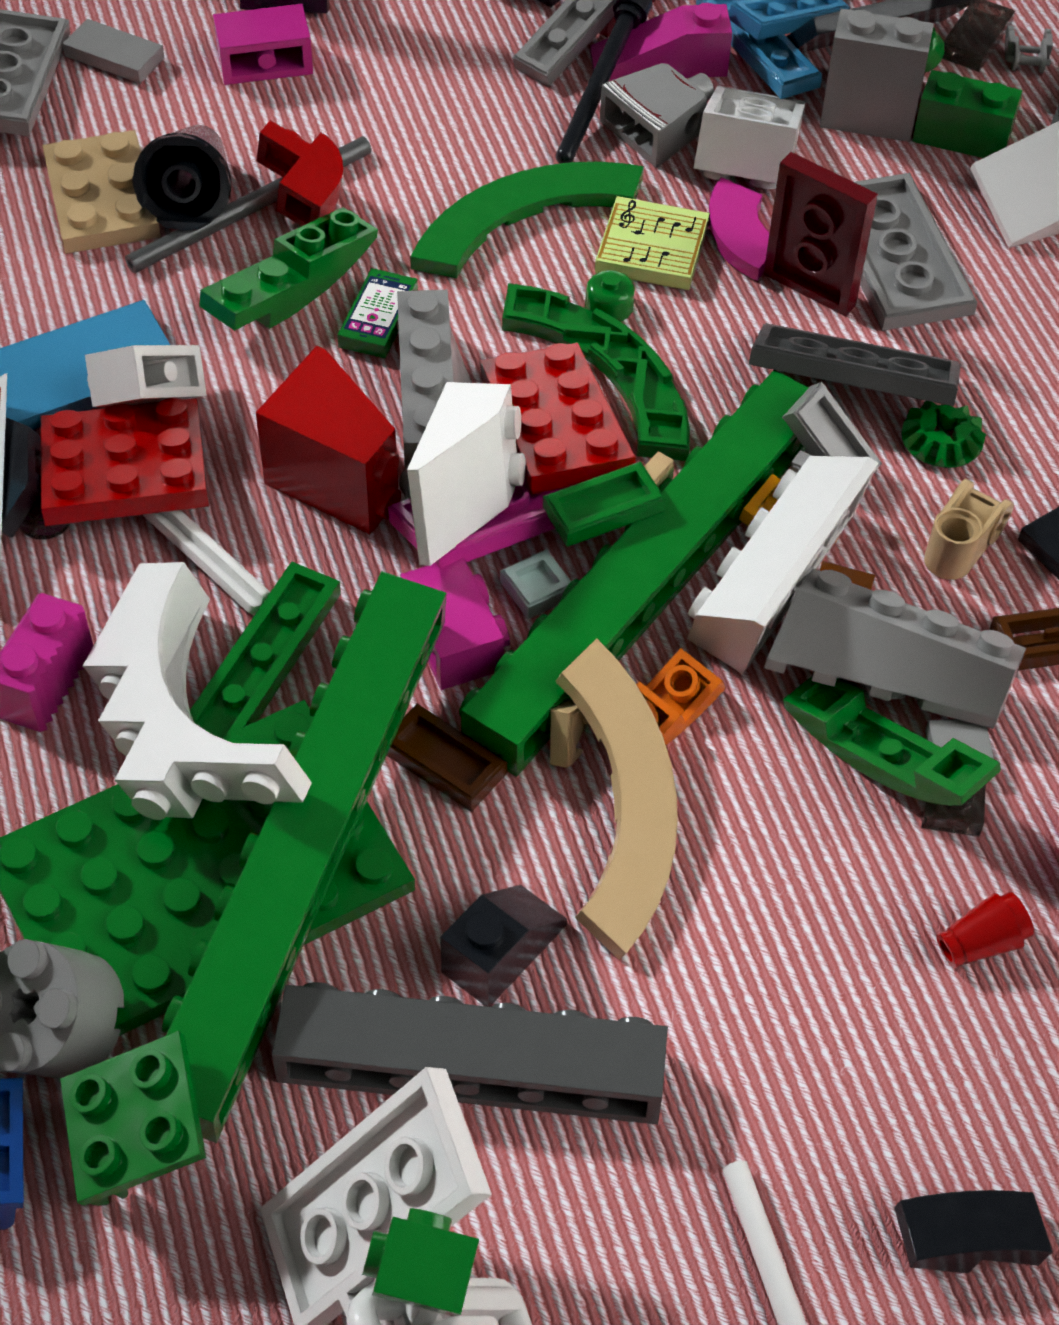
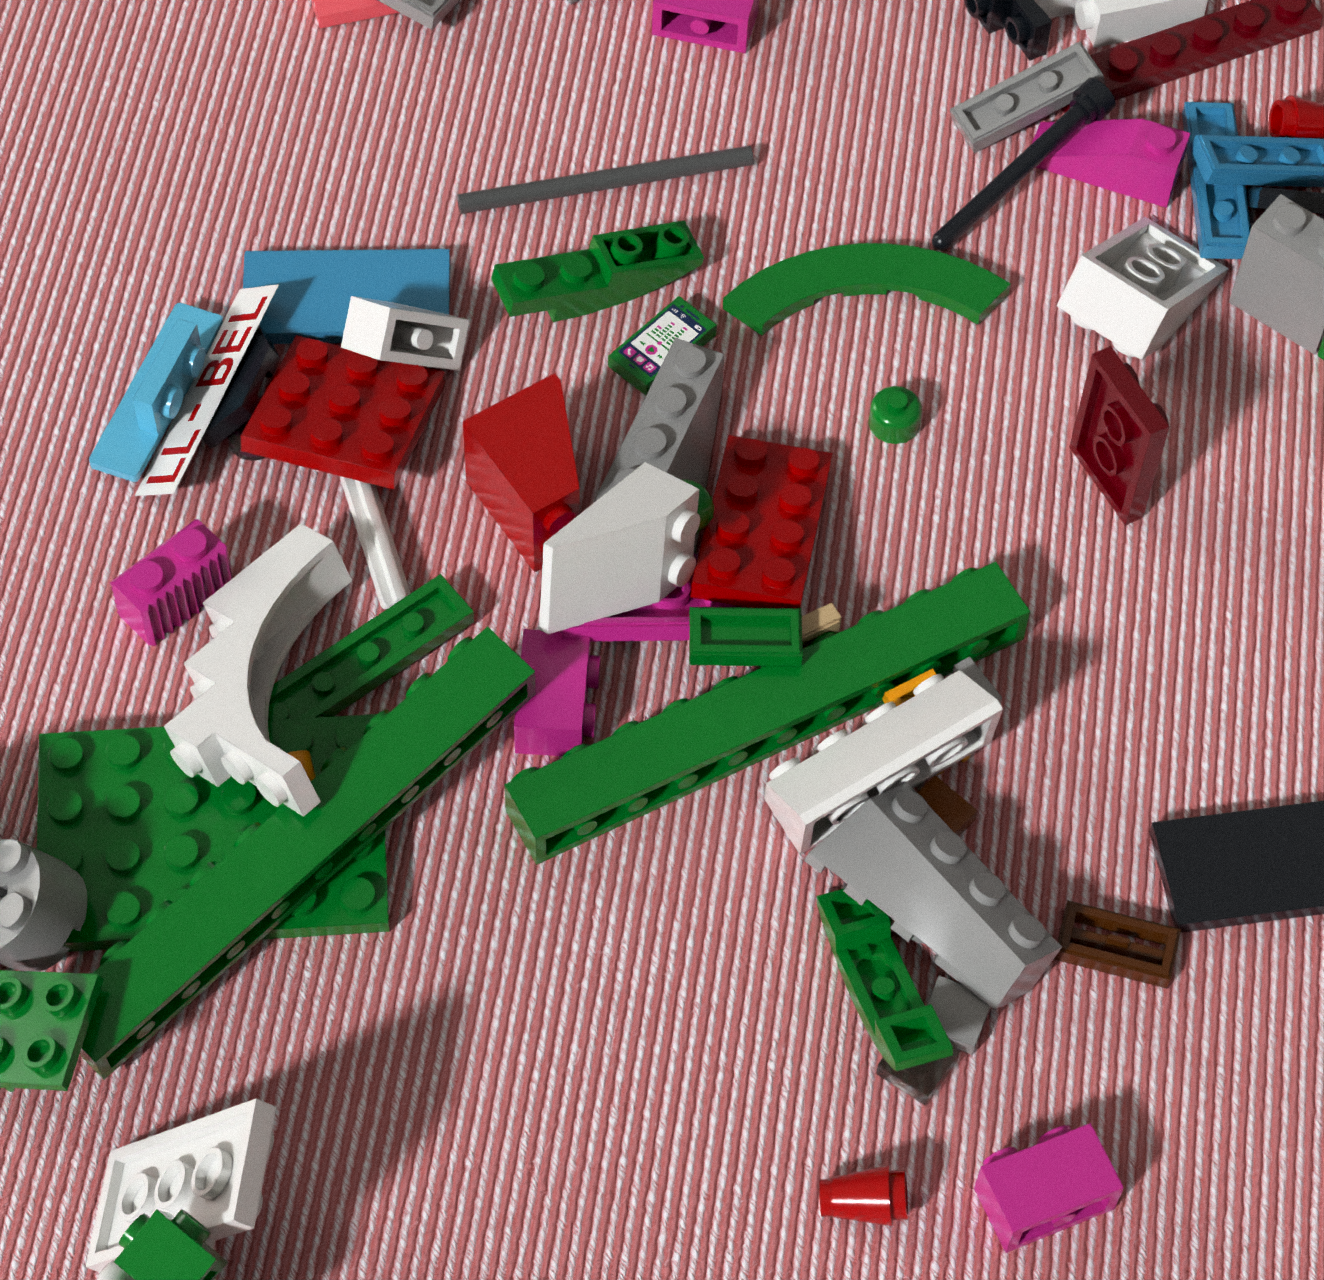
camera: 25 degrees right, 5 degrees up
(96, 192) = (471, 114): tan plate -> none
(183, 178) = (547, 132): black cone -> none
(309, 172) = (670, 180): red brick -> none
(446, 758) = (480, 819): reddish brown tile -> none
(490, 1053) = (351, 1100): dark grey brick -> none
(497, 941) = (431, 1008): black slope -> none
(535, 583) = (655, 684): light aqua tile -> none
(565, 733) = (600, 838): tan tile -> none
(618, 353) = (869, 480): green tile -> none
(642, 798) = (628, 932): tan tile -> none
(653, 242) = (973, 371): yellowish green tile -> none
(655, 110) = (1059, 222): light grey torso -> none
(680, 693) = (705, 857): orange slope -> none
(737, 228) = (1063, 385): dark pink tile -> none
(825, 427) = (1013, 656): light grey tile -> none
(856, 363) = (1089, 586): dark grey tile -> none
(907, 262) = (1219, 475): light grey tile -> none
(935, 446) = (1121, 702): green gear -> none
(965, 531) = (1102, 794): tan piece -> none

